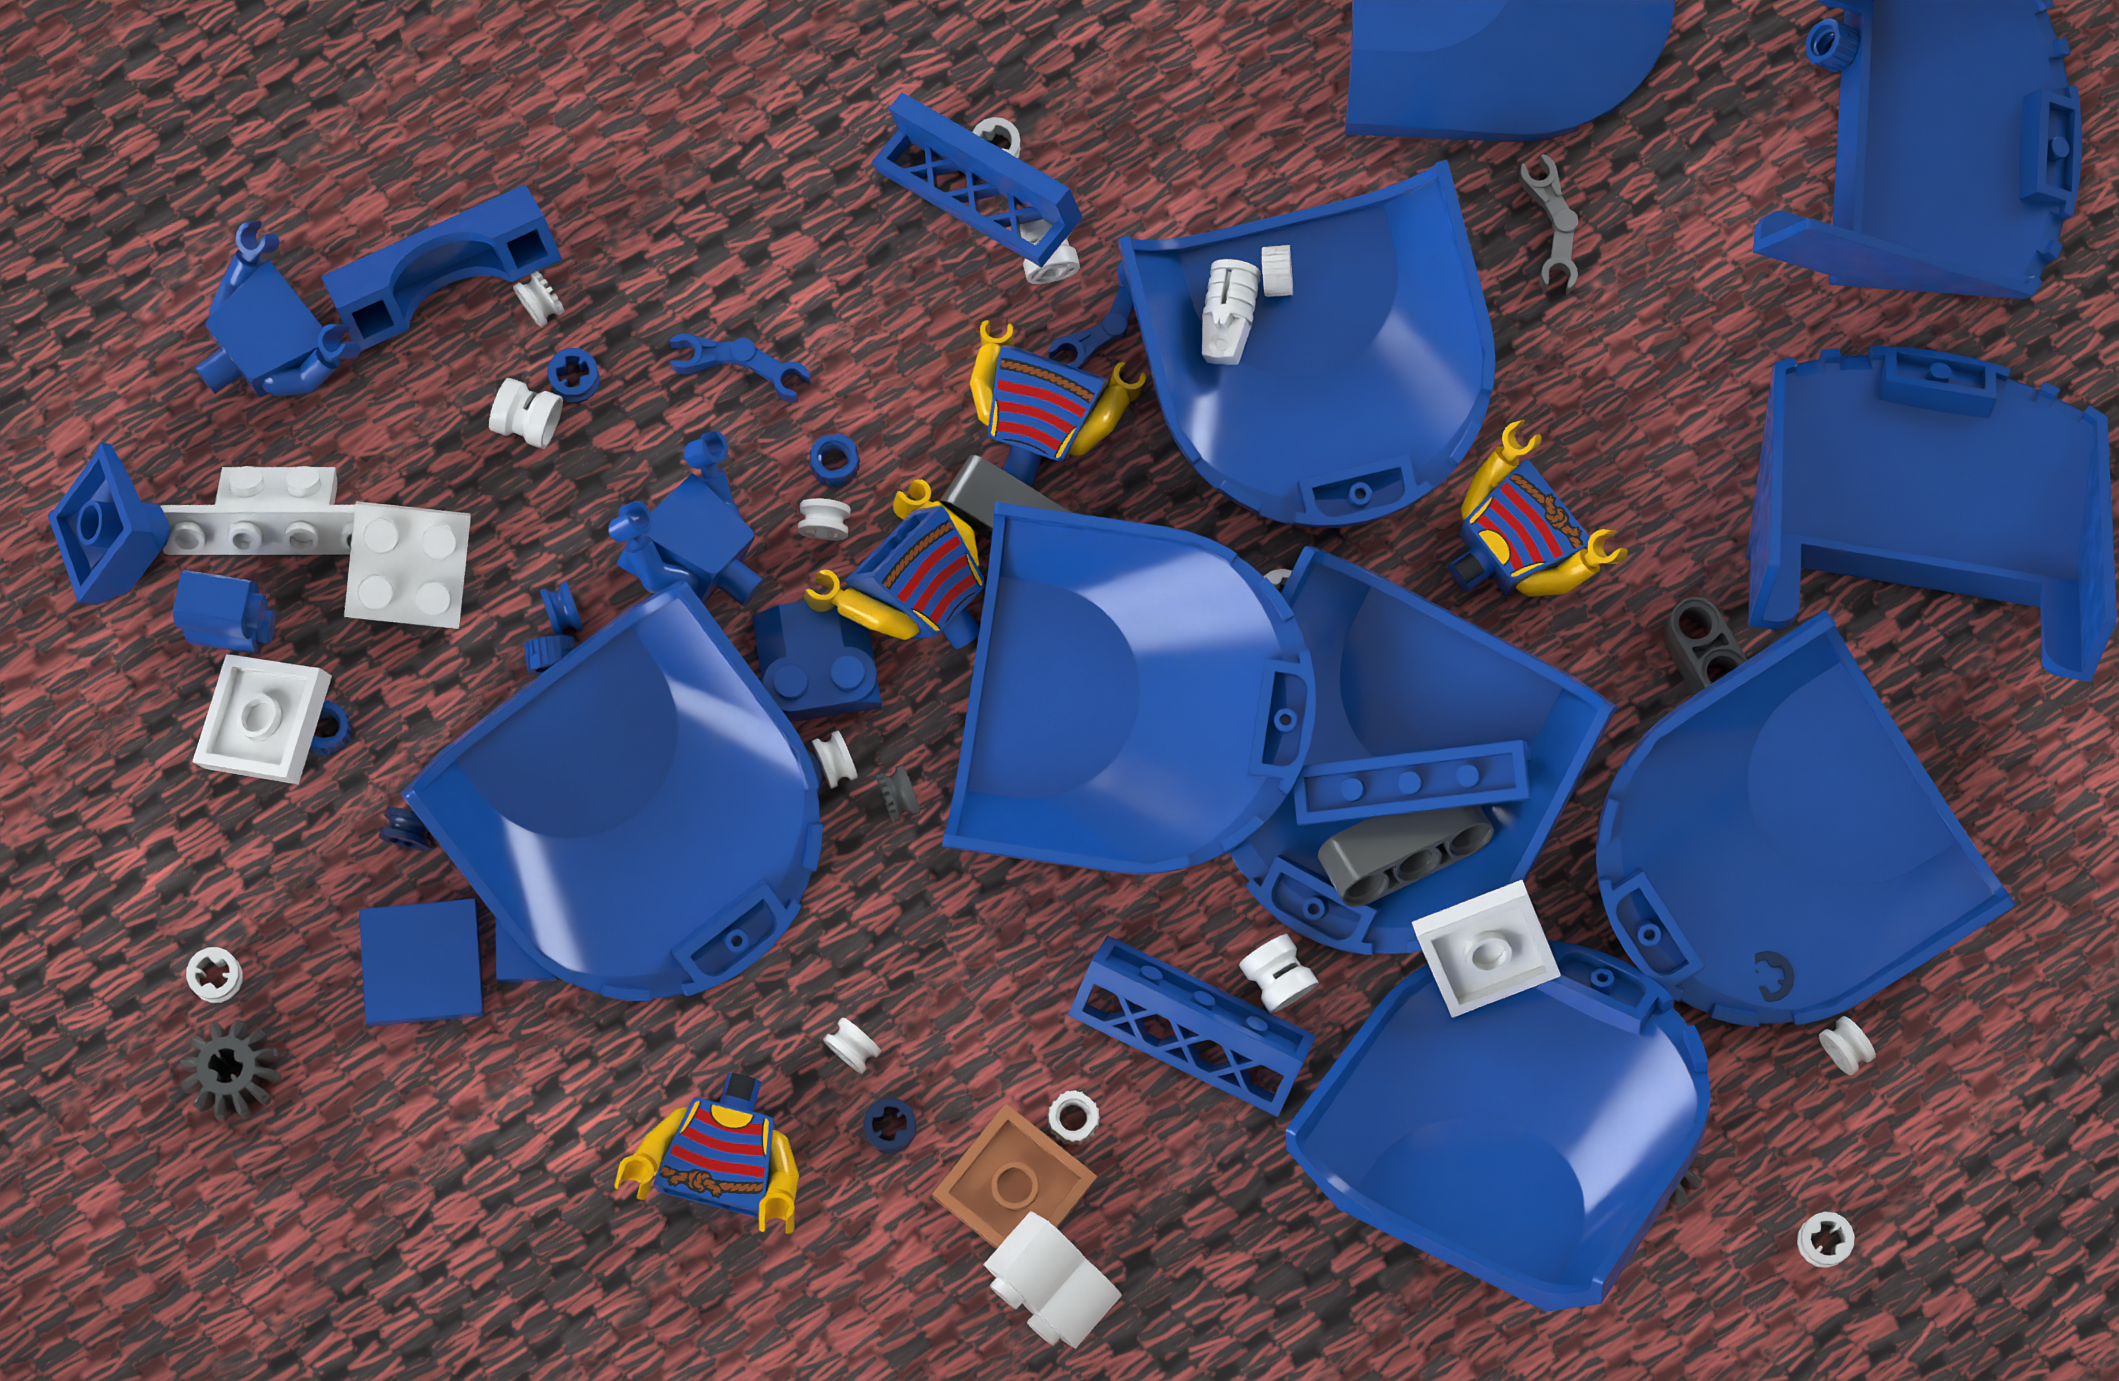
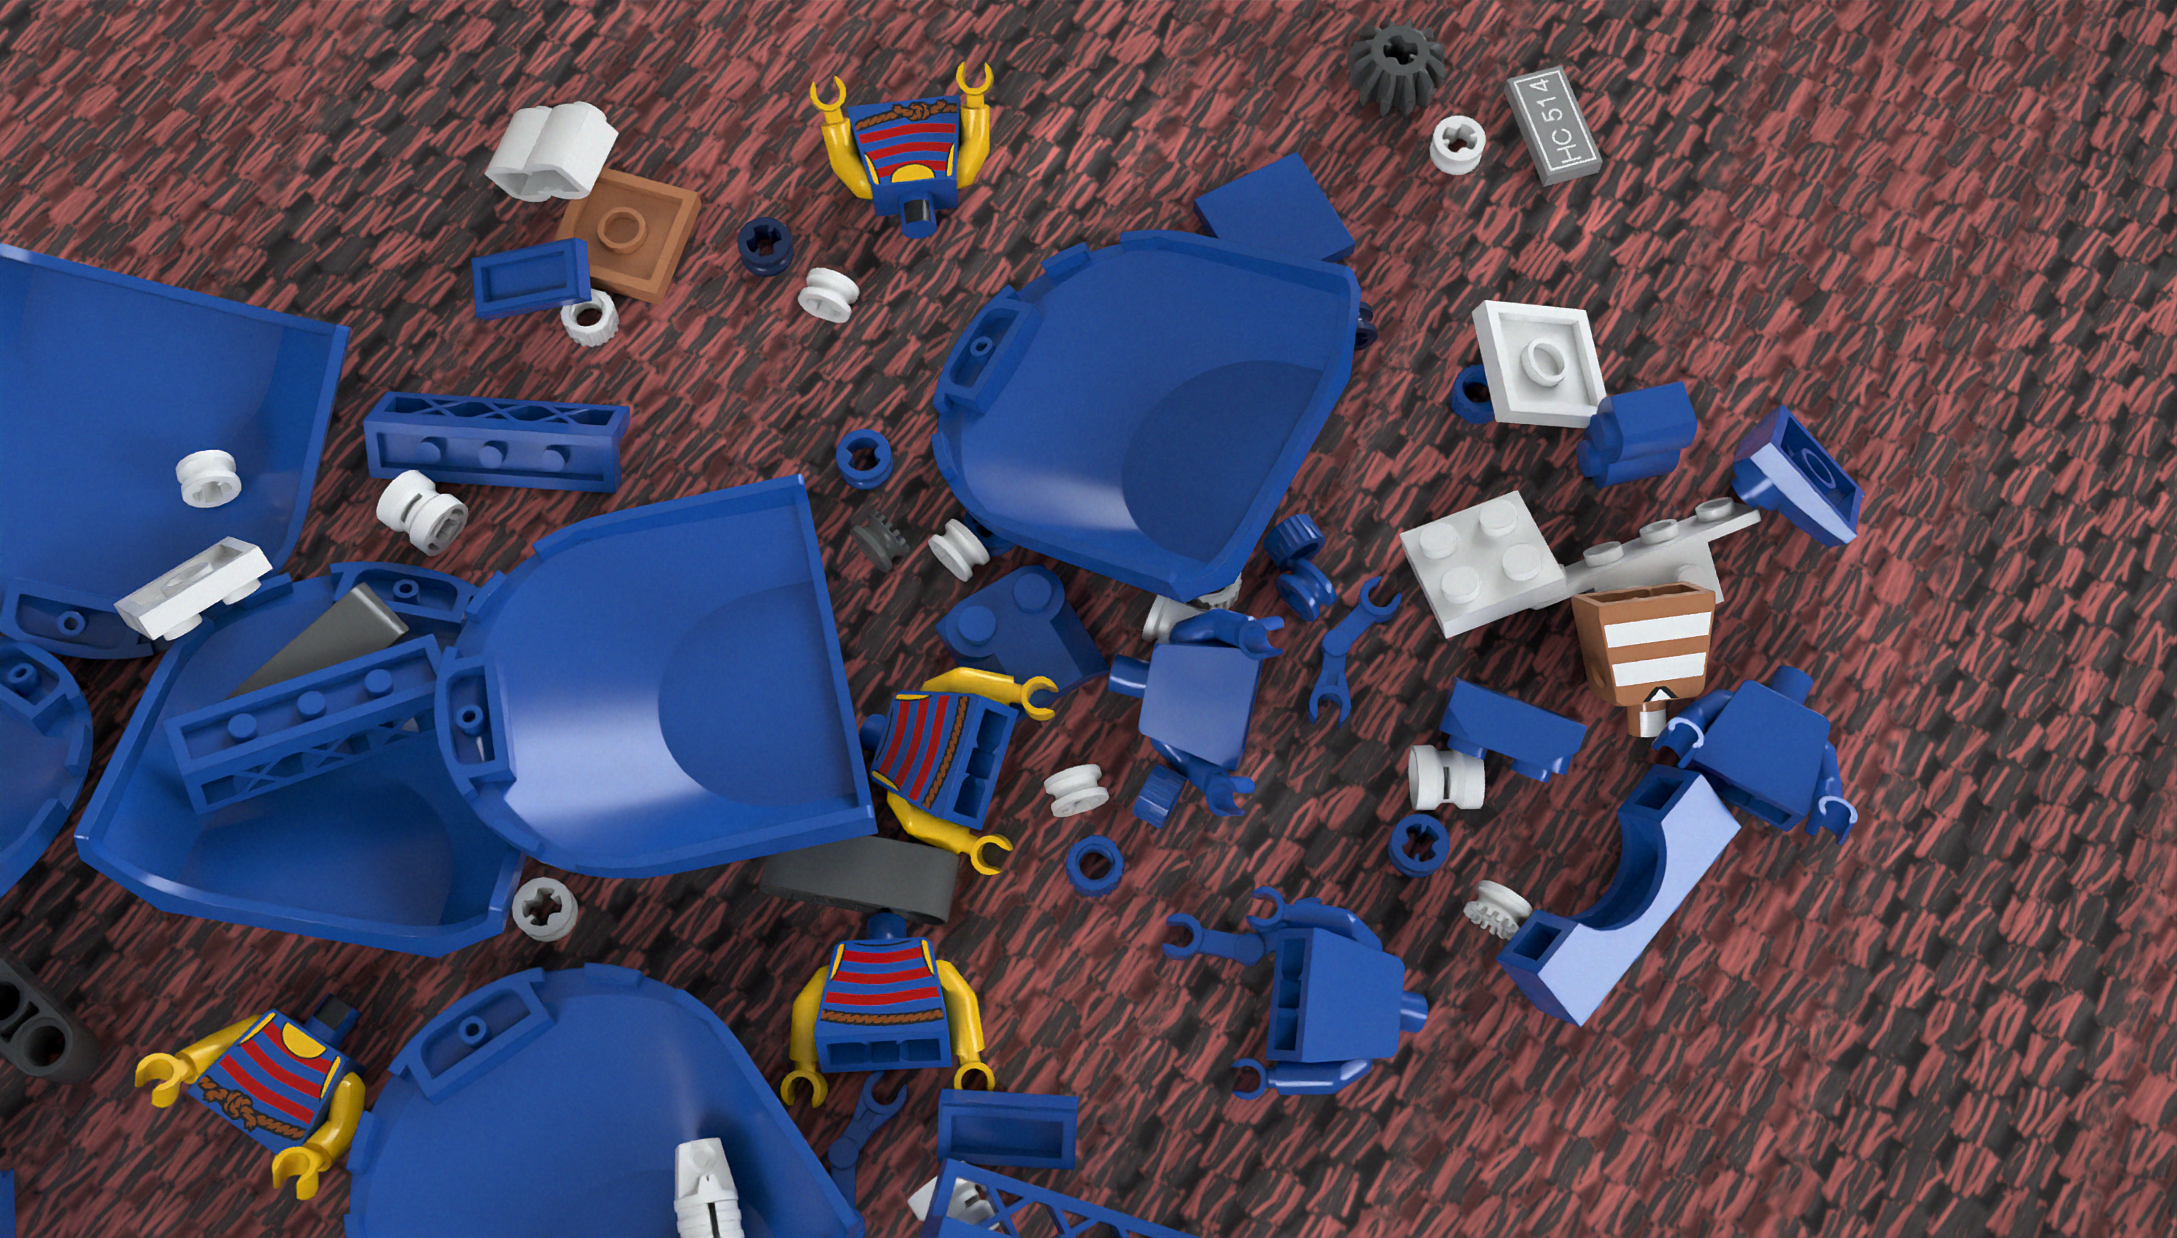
camera: 160 degrees right, 5 degrees down
(116, 961) = (1552, 126): none -> light grey tile
(313, 440) = (1645, 647): none -> nougat torso
(458, 415) = (1495, 721): none -> blue slope
(557, 559) = (1336, 645): none -> blue piece
(703, 273) = (1331, 1000): none -> blue torso
(759, 489) = (1159, 795): none -> blue axle
(898, 882) = (858, 440): none -> blue bush
(985, 289) = (1007, 1128): none -> blue tile
(1113, 1161) = (531, 279): none -> blue tile
(1454, 1072) = (208, 478): none -> white bush

